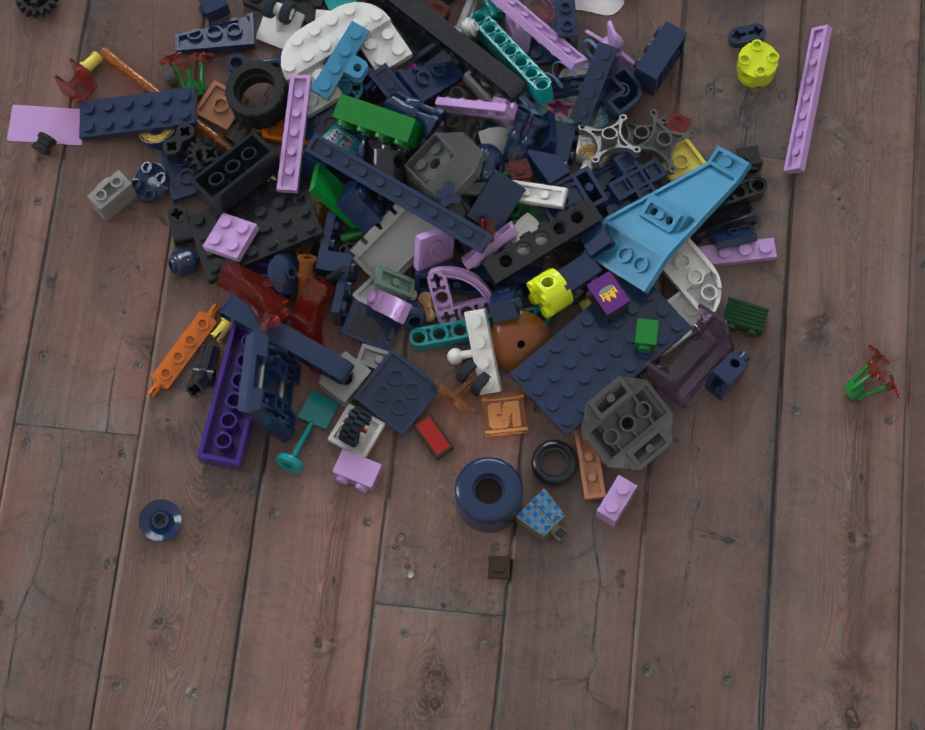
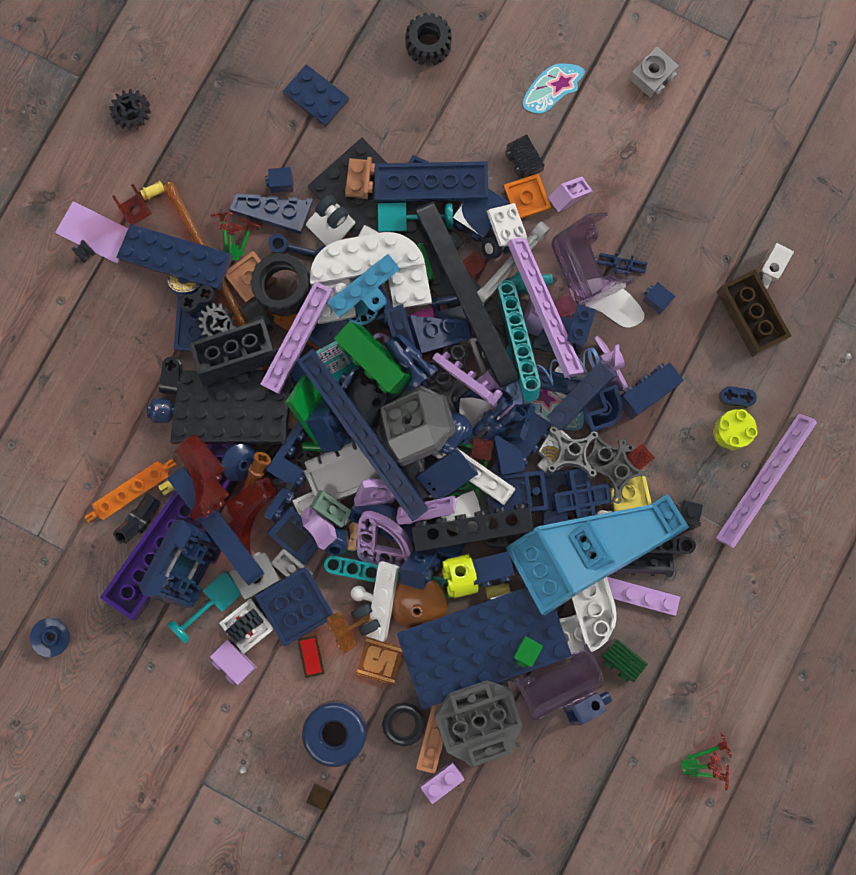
camera: 15 degrees right, 10 degrees up
(112, 195) = (122, 324): light grey brick -> none
(150, 181) = (161, 323): dark blue dish -> none
(169, 76) = (215, 231): dark grey axle -> none
(231, 237) = (205, 410): lavender plate -> none
(447, 195) = (404, 458): dark blue piece -> none
(470, 27) = (493, 296): white plate -> none
(489, 226) = (429, 496): clear red plate -> none
(542, 517) = (373, 770): torso -> none
(597, 239) = (522, 545): dark blue piece -> none
(607, 297) = (508, 604): piece -> none
(733, 237) = (645, 583): dark blue plate -> none

